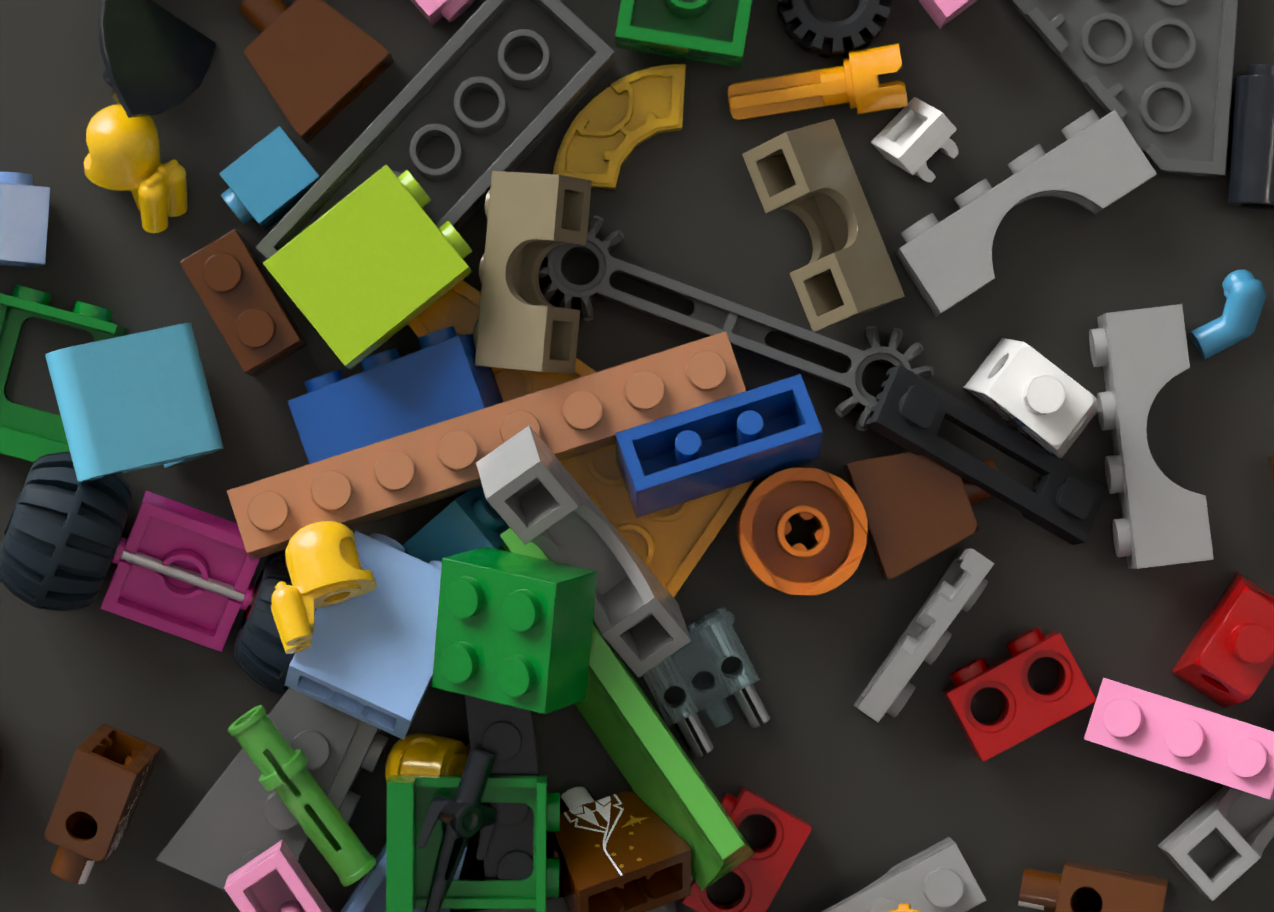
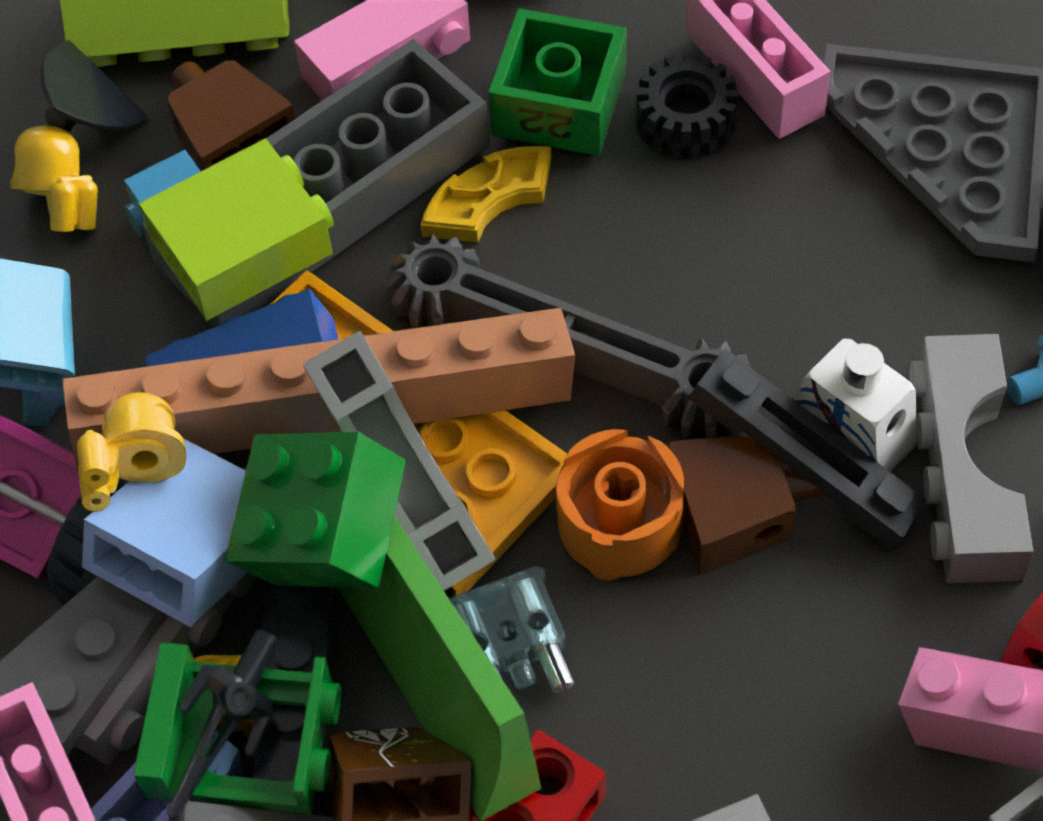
camera: 10 degrees right, 30 degrees down
(243, 303) = (125, 288): reddish brown brick -> none
(258, 737) = (41, 601): bright green pin -> none
(525, 222) = (391, 214): dark tan arch -> none
(718, 445) = (541, 404): blue brick -> none
(816, 181) = (653, 222): dark tan arch -> none
(850, 83) = (712, 163): light orange piece -> none
(915, 137) = (751, 208): white tile -> none
(925, 635) = (722, 619): light grey wing -> none
(1023, 709) = (839, 688): red brick -> none
(1090, 168) = (909, 238): light grey arch -> none

